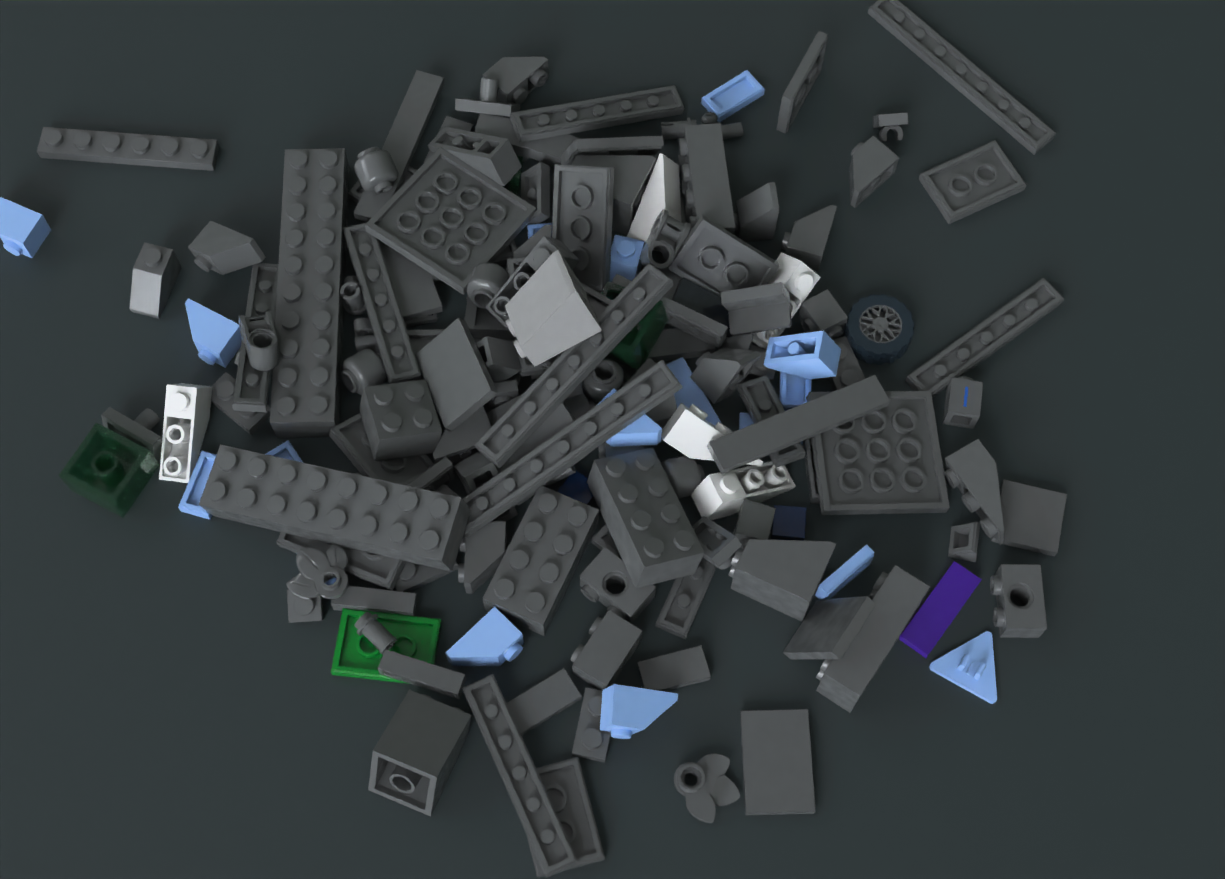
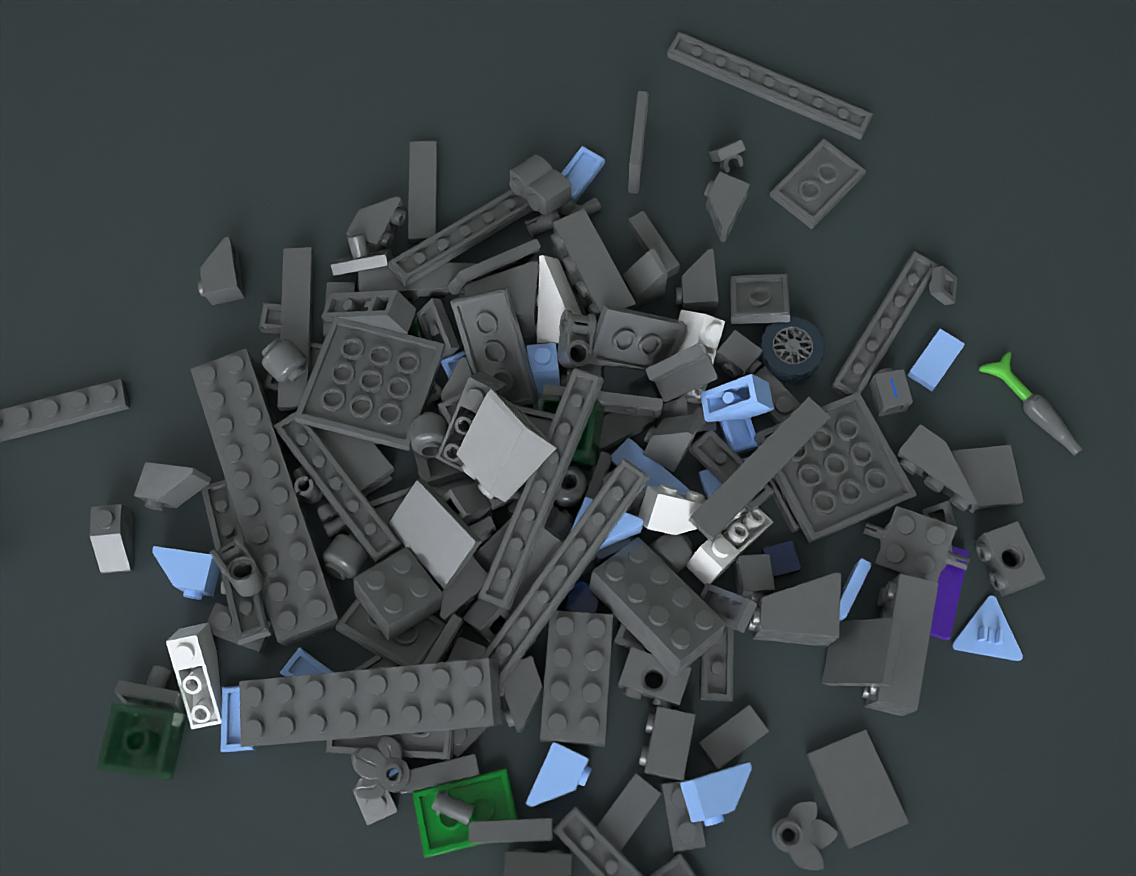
camera: 15 degrees left, 5 degrees up
(348, 76) = (222, 274): none -> dark grey slope
(378, 132) = (270, 318): none -> dark grey tile
(573, 60) = (422, 190): none -> dark grey tile
(689, 91) = (540, 185): none -> dark grey brick
(778, 172) = (649, 238): none -> dark grey piece
(865, 270) = (759, 299): none -> dark grey tile
(930, 553) = (916, 545): none -> dark grey plate
(1024, 389) = (935, 359): none -> light blue tile
(1060, 319) = (943, 285): none -> dark grey plate
(1107, 465) = (1034, 404): none -> dark grey piece

